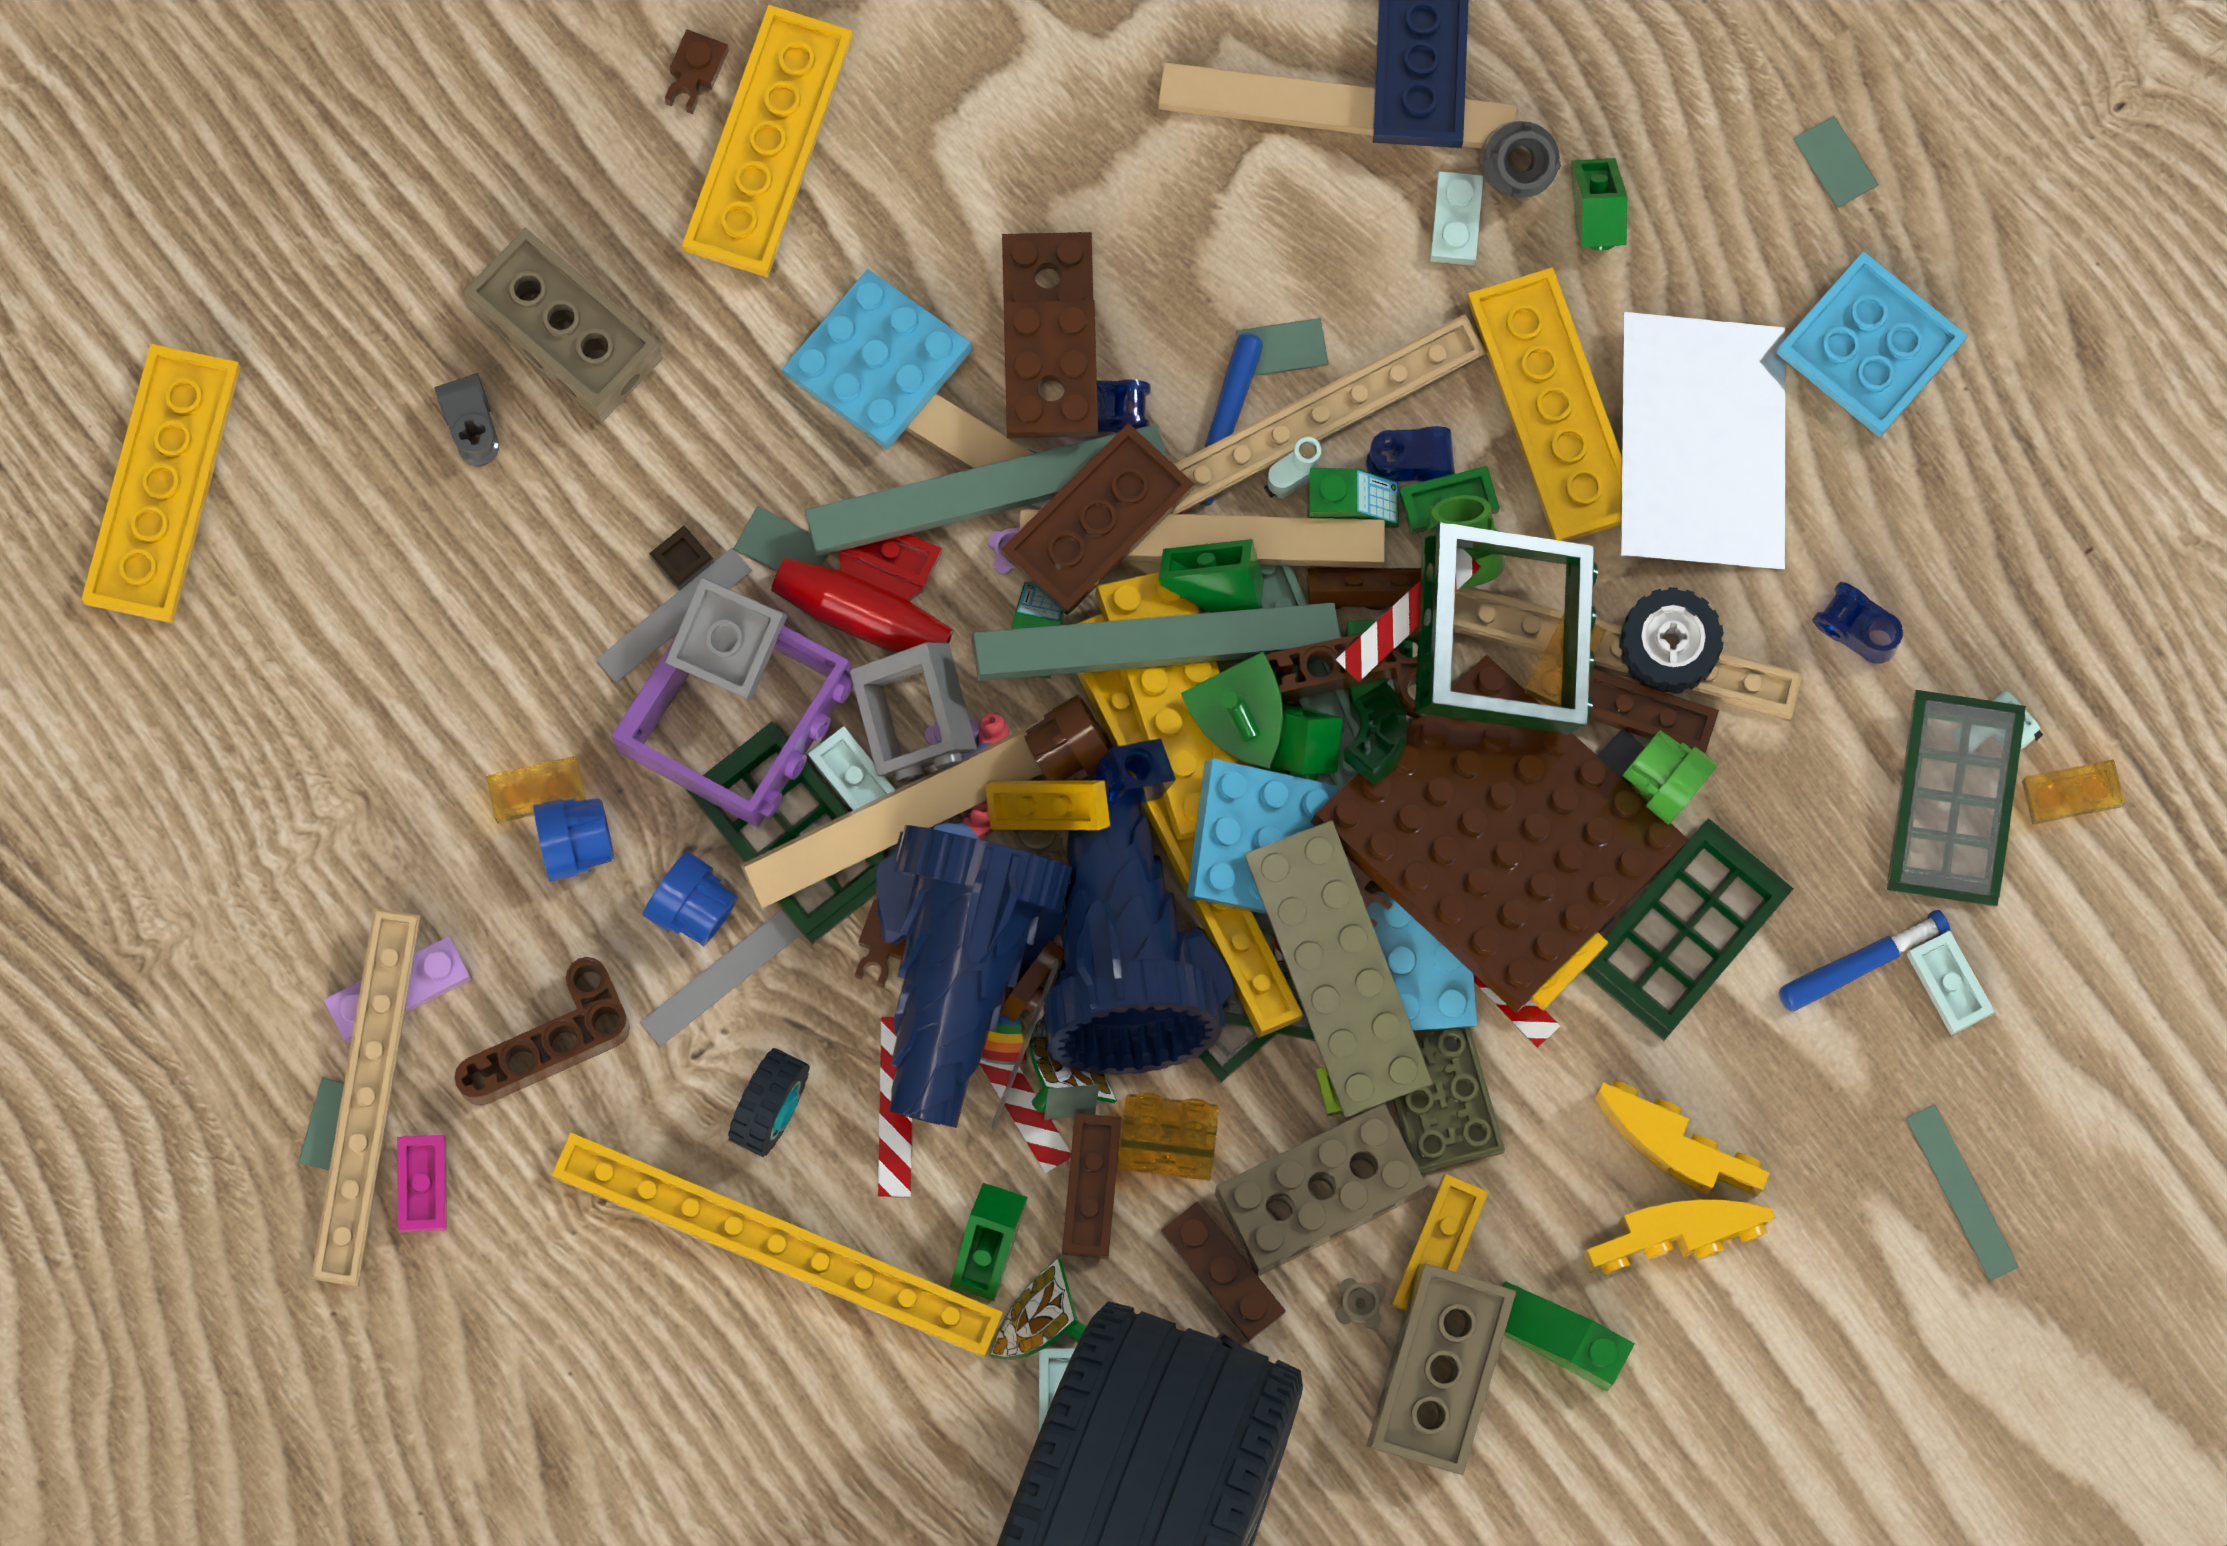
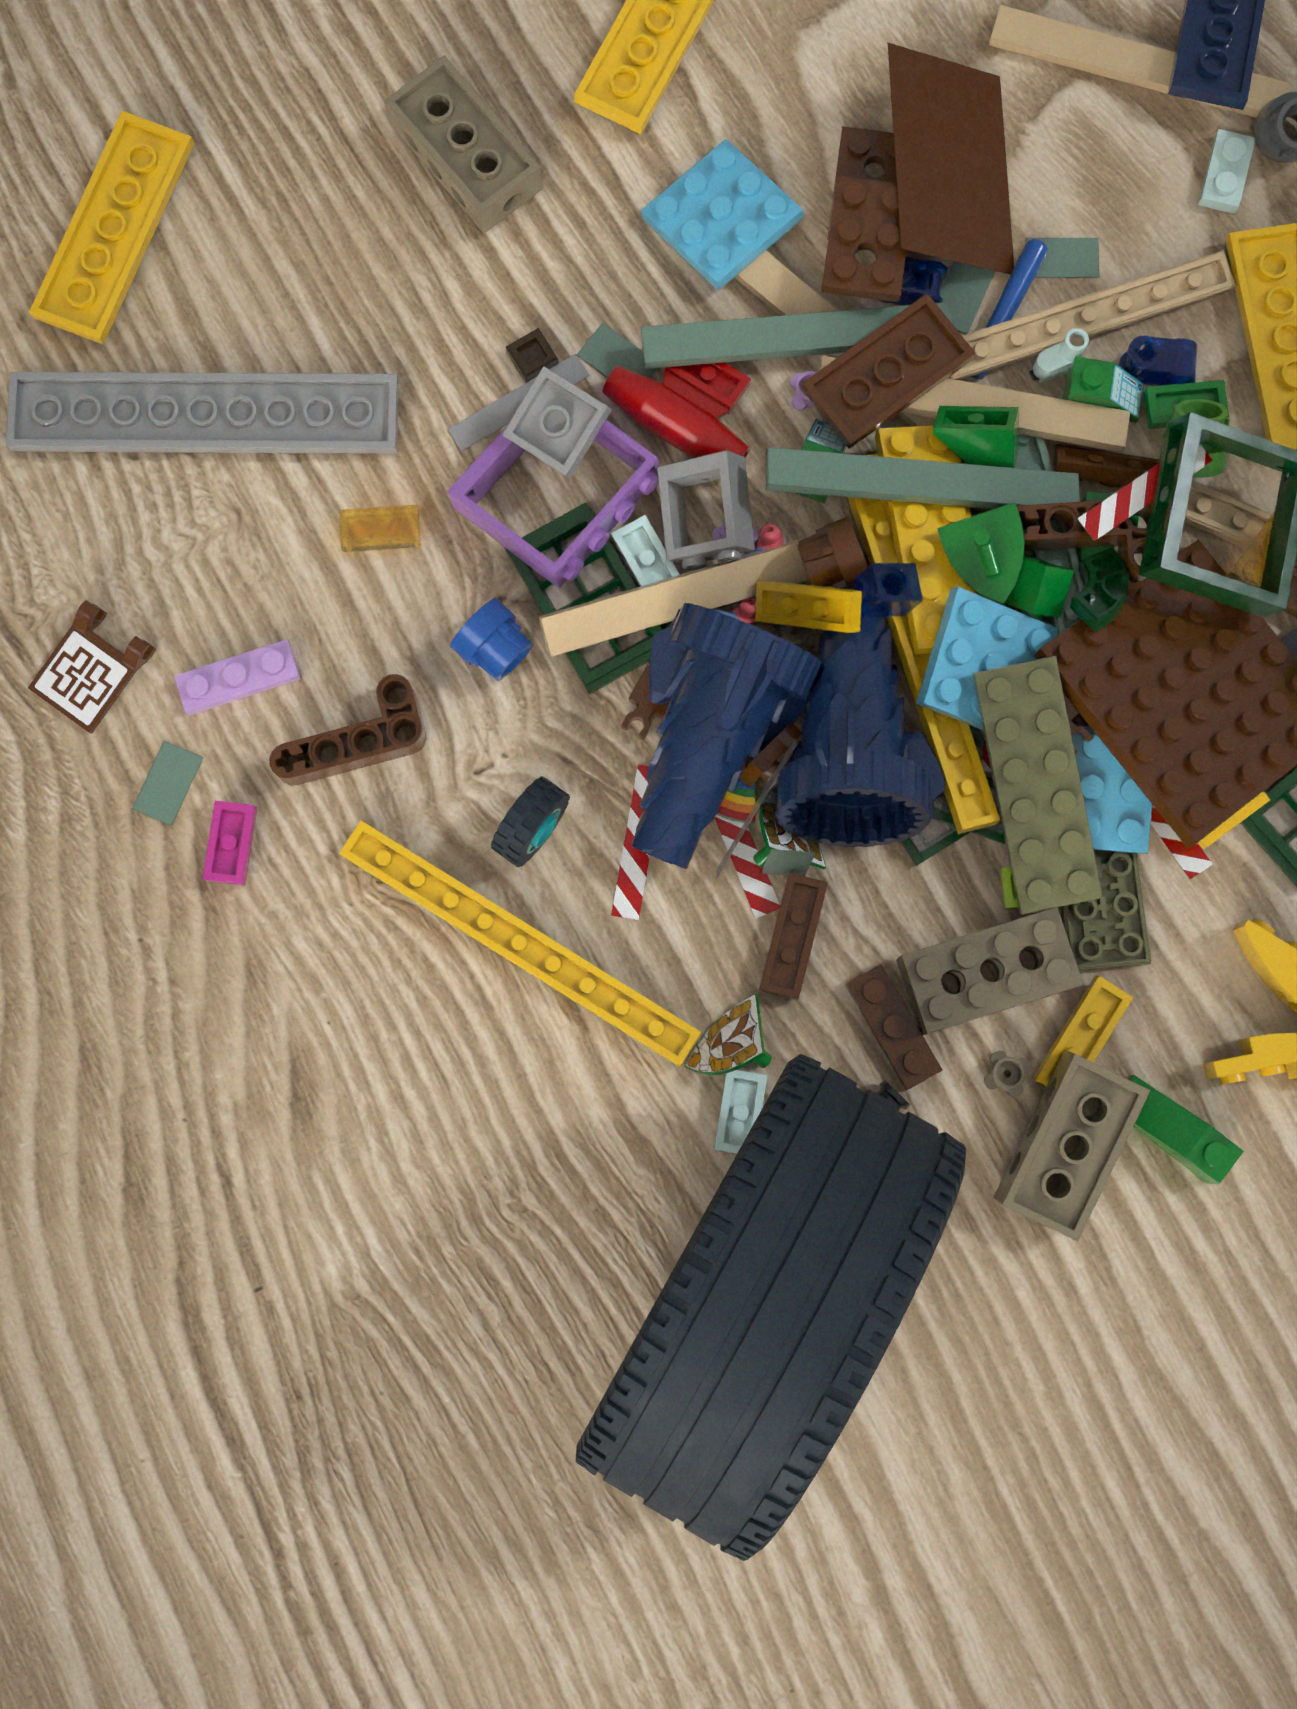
camera: 15 degrees right, 5 degrees up
(220, 1010) = (87, 671): none -> flag
(305, 686) = (202, 412): none -> light grey plate
(366, 1097) = (194, 763): tan tile -> none
(467, 415) = (373, 211): dark grey piece -> none
(572, 836) = (401, 571): blue piece -> none
(720, 978) = (508, 710): light grey sticker -> none
(988, 1241) = (698, 969): green slope -> none
(1133, 260) = (950, 160): none -> reddish brown sticker
(1168, 1136) = (865, 905): clear yellow bracket -> none
(1175, 405) = (964, 292): none -> sand green sticker

